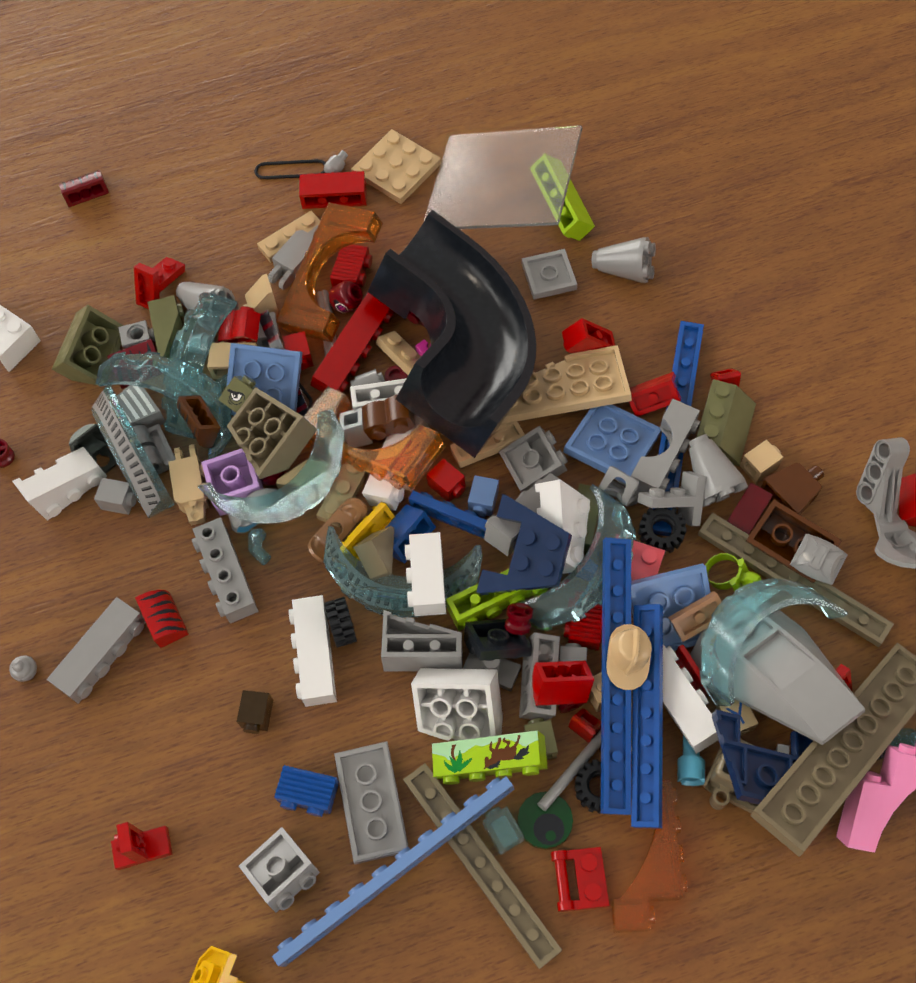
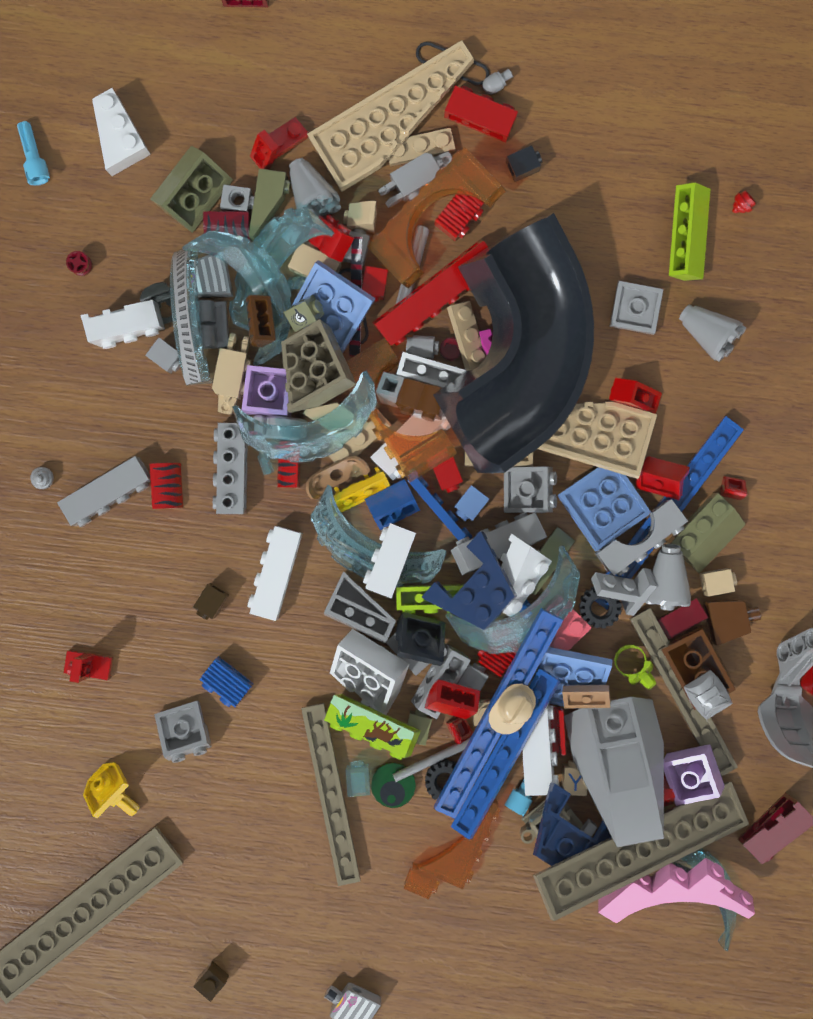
camera: 20 degrees right, 25 degrees up
(246, 231) = (373, 129): none -> tan wing
(283, 545) = (288, 474): none -> red brick
(340, 622) = (305, 562): black tyre -> none
(345, 296) = (440, 246): dark red head -> none
(371, 802) = (270, 712): light grey plate -> none
(377, 553) = (360, 516): dark tan slope -> none
(386, 876) = (275, 772): medium blue plate -> none
(390, 208) = (524, 163): none -> black brick
(397, 166) = (554, 110): tan plate -> none
(505, 178) = (644, 186): clear piece -> none
(518, 618) = (448, 625): dark red wheel -> none
(589, 879) = (404, 841): red plate -> none
(595, 163) = (743, 202): none -> red plate
(625, 495) = (583, 549): light grey piece -> none
(736, 619) = (620, 716): clear light blue windscreen -> none
(855, 647) = (693, 775): none -> lavender brick

